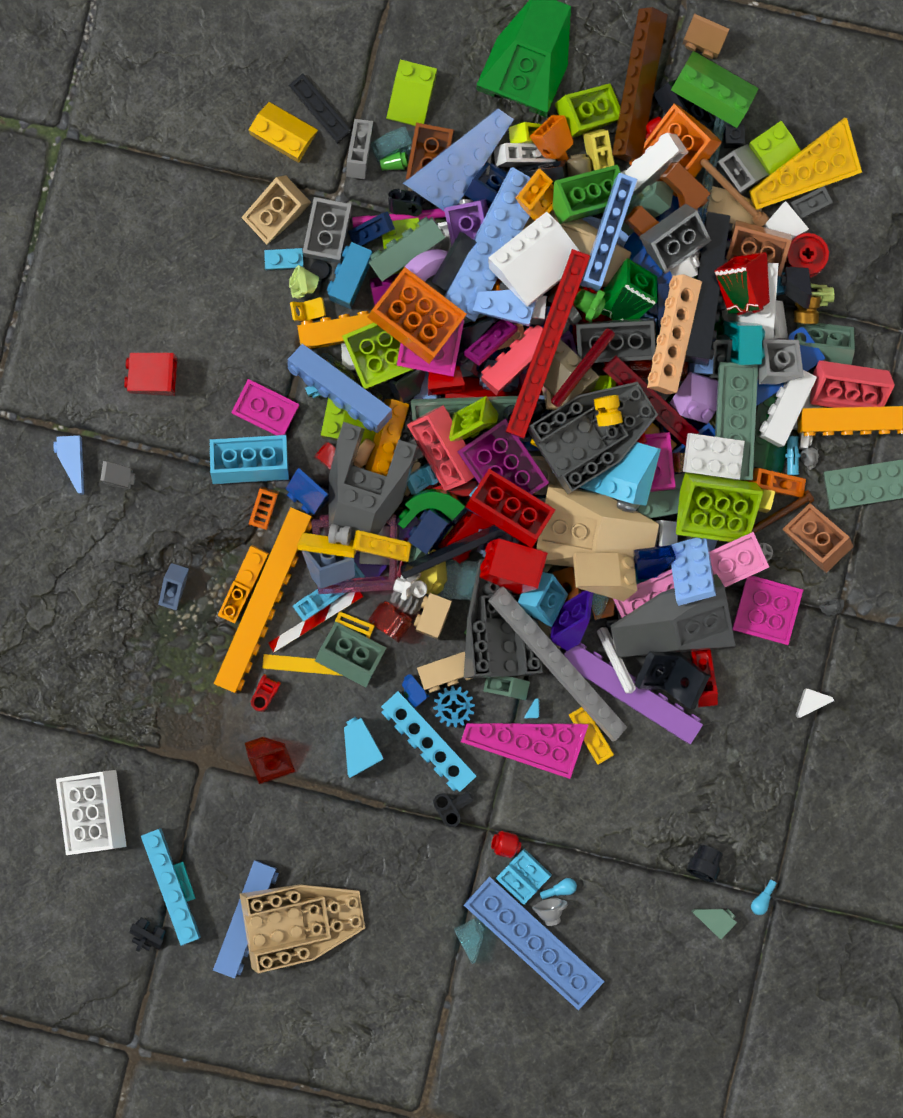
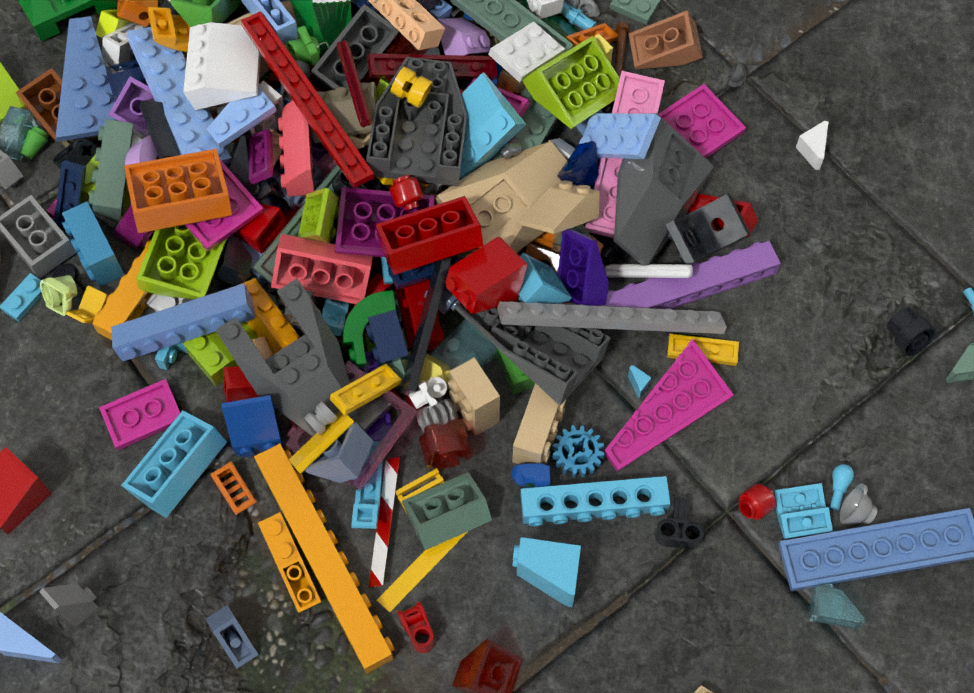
camera: 55 degrees left, 20 degrees down
(507, 687) = (596, 388): sand green slope -> none
(532, 466) = (406, 192): none -> red head

